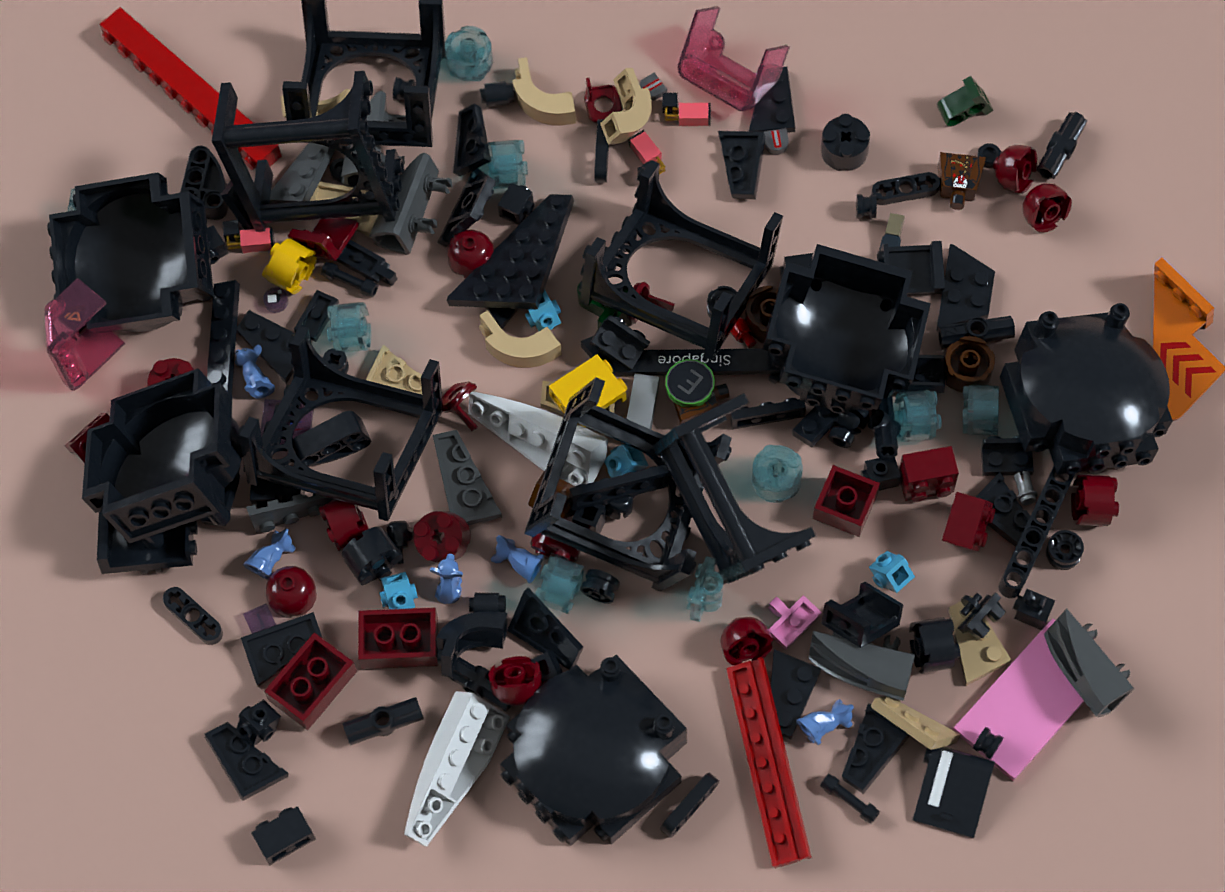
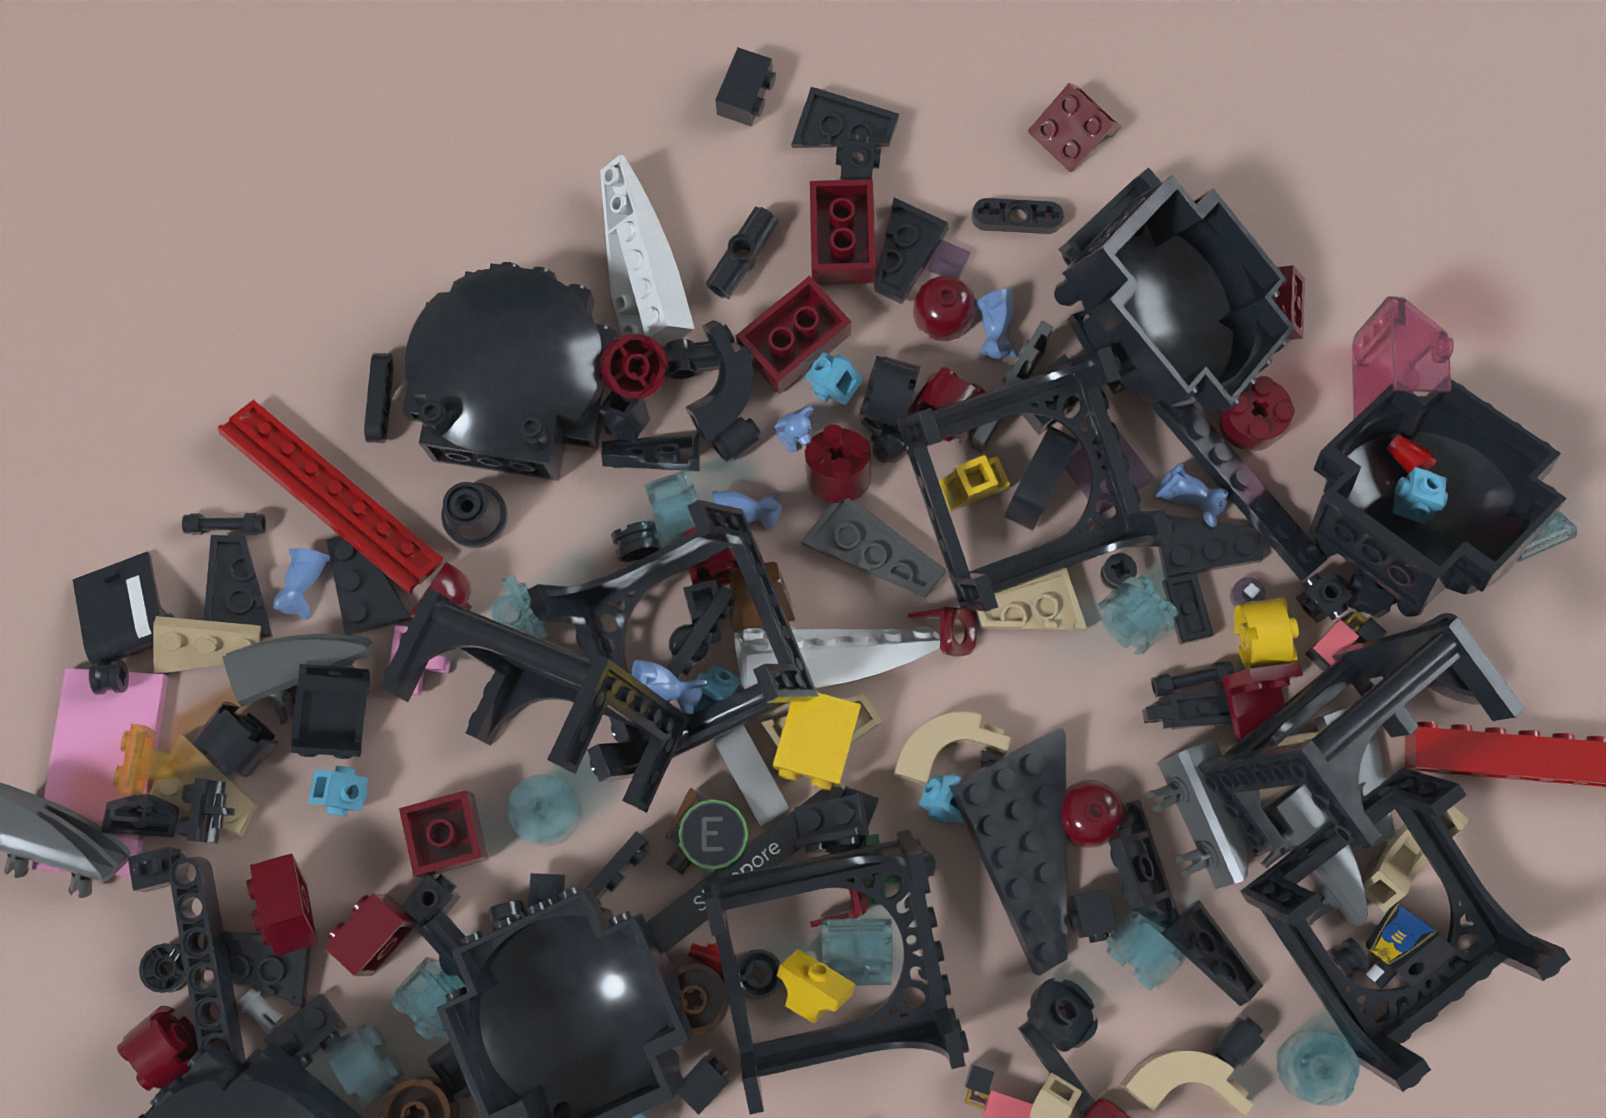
camera: 140 degrees right, 10 degrees up
(104, 642) = (1072, 126): none -> dark red bracket
(114, 295) = (1411, 454): none -> red cone
(134, 268) = (1420, 495): none -> medium azure brick
(237, 263) = (1324, 596): none -> black brick
(361, 467) = (973, 482): none -> yellow brick
(376, 66) = (1405, 948): none -> torso
(586, 170) = (1058, 1030): none -> black plate
(655, 472) = (668, 686): none -> medium blue animal
(661, 275) = (859, 949): none -> clear light blue plate
(686, 691) = (480, 525): none -> black piece
(698, 271) = (813, 986): none -> yellow brick
(999, 666) = (141, 761): none -> clear yellow plate
(1023, 637) = (140, 816): none -> black slope

